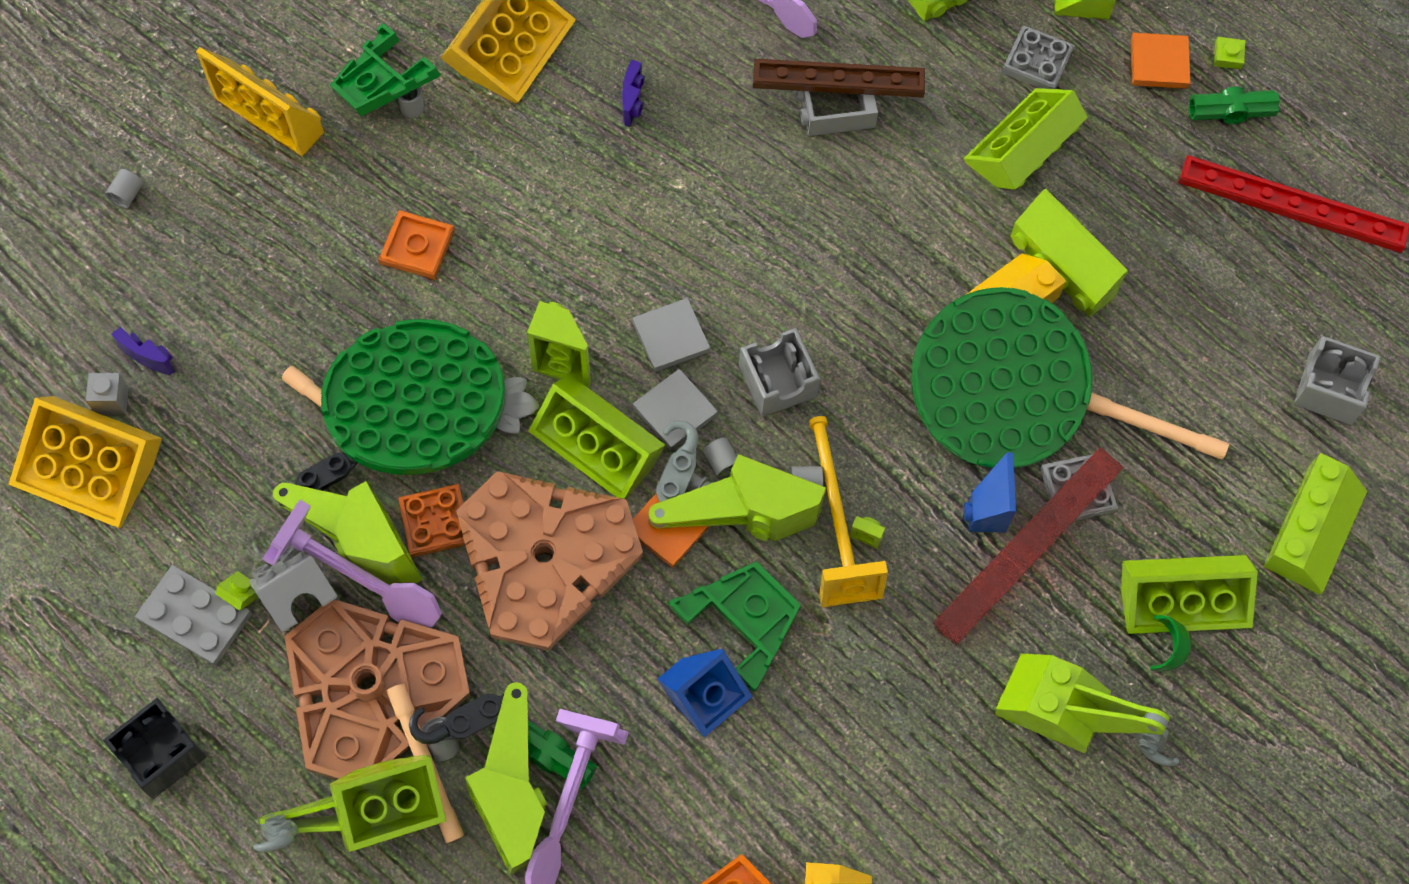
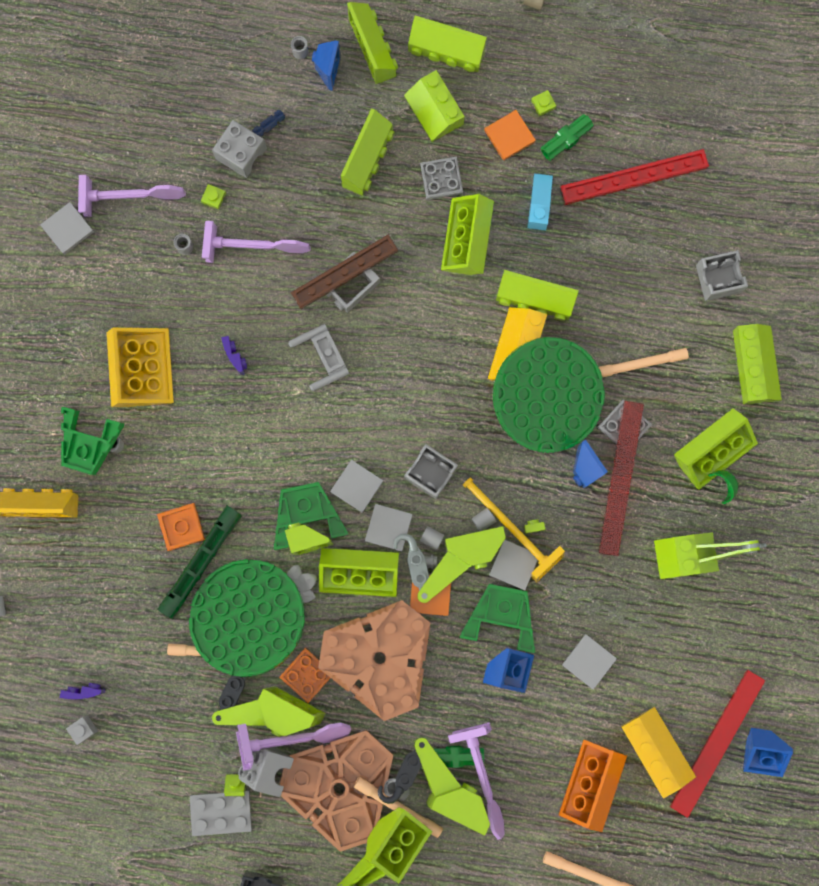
camera: 30 degrees left, 15 degrees up
(83, 460) = (98, 773): yellow slope -> none
(407, 295) = (192, 573): none -> dark green piece
(600, 319) = (302, 506): none -> green wing
(749, 163) = (328, 353): none -> light grey plate
(802, 558) = (513, 565): none -> light grey tile
(821, 752) = (589, 661): none -> light grey tile
(1145, 158) = (540, 202): none -> medium azure slope

